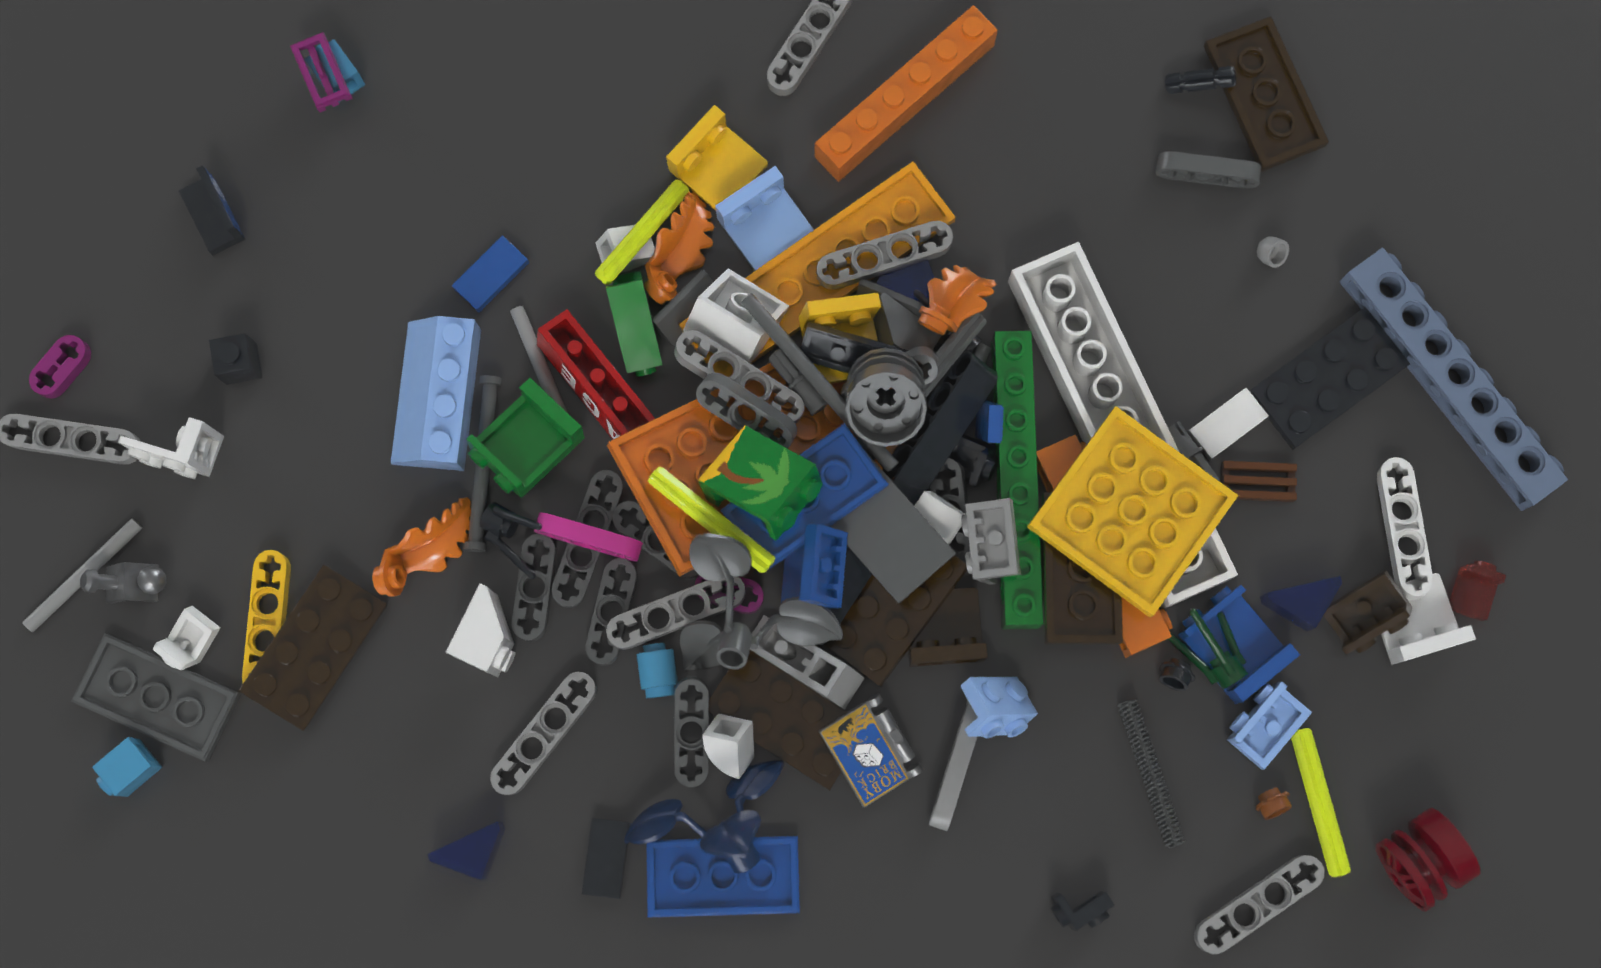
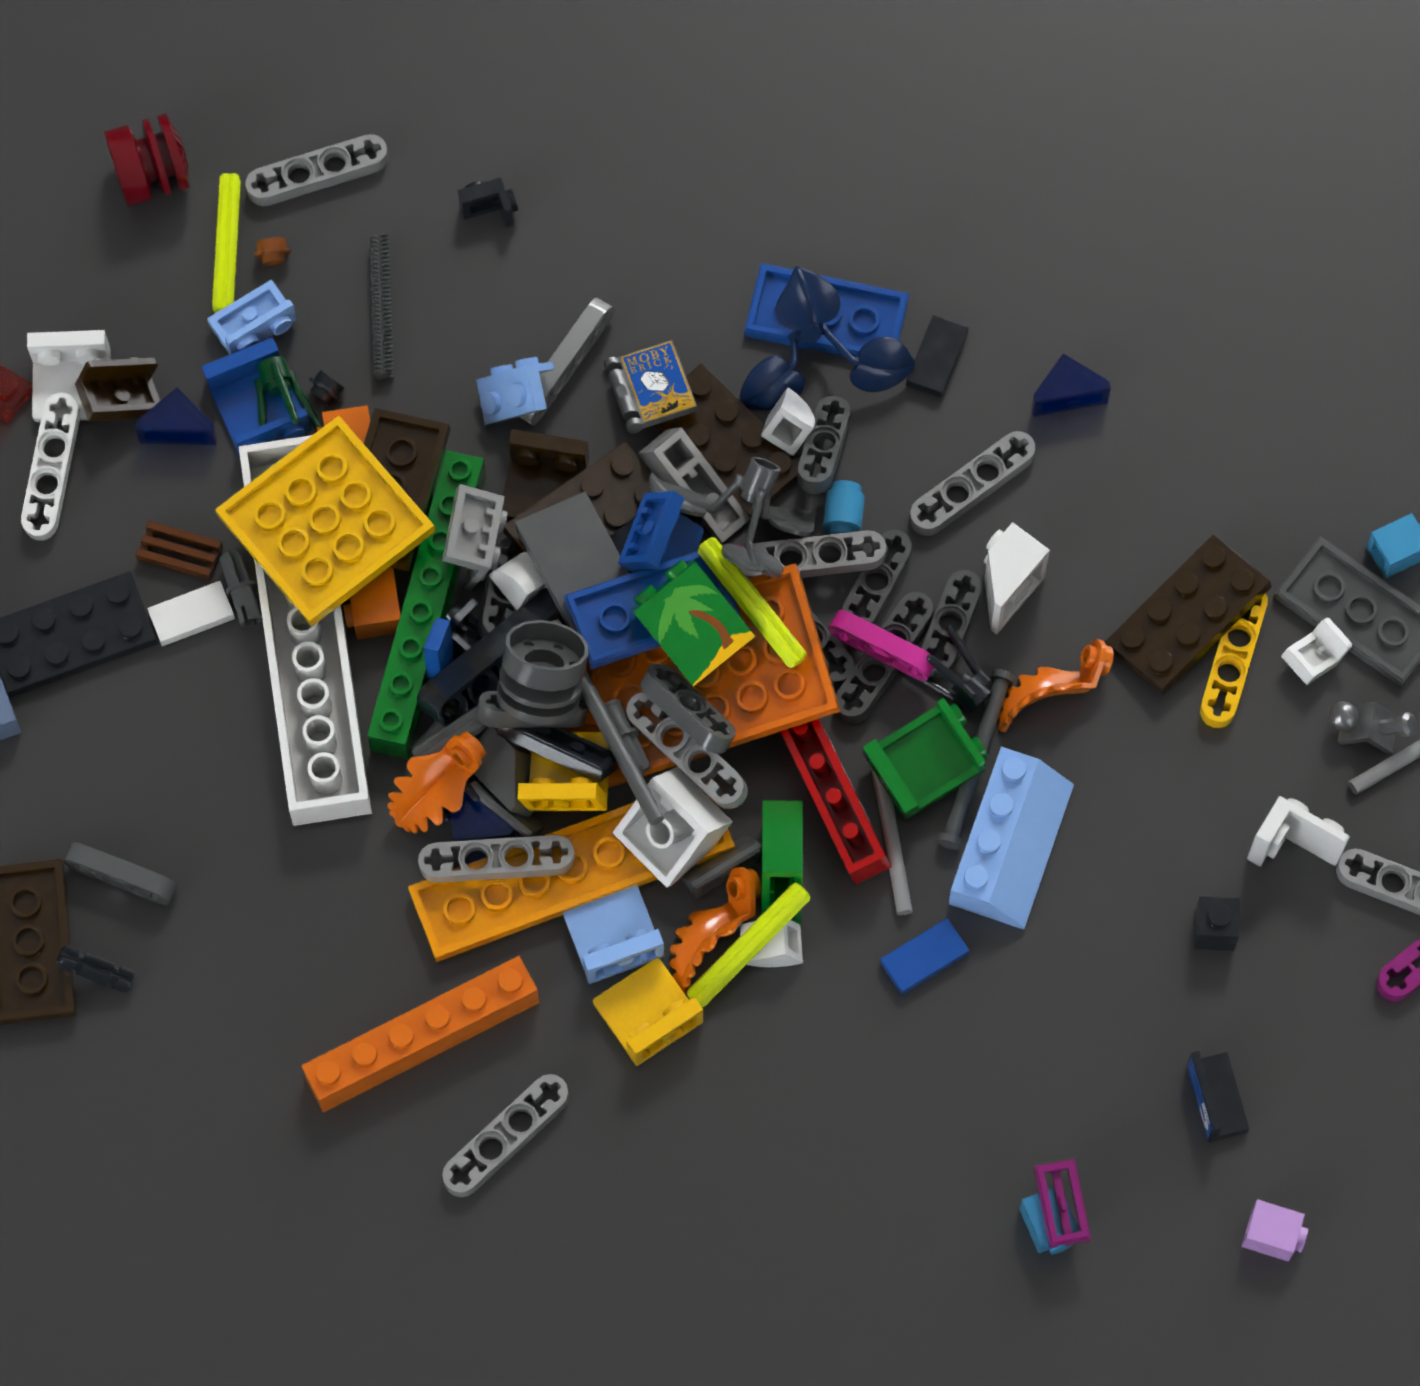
camera: 165 degrees left, 10 degrees down
(142, 108) = (1275, 1231): none -> lavender brick
(1272, 251) = (83, 772): light grey hinge -> none

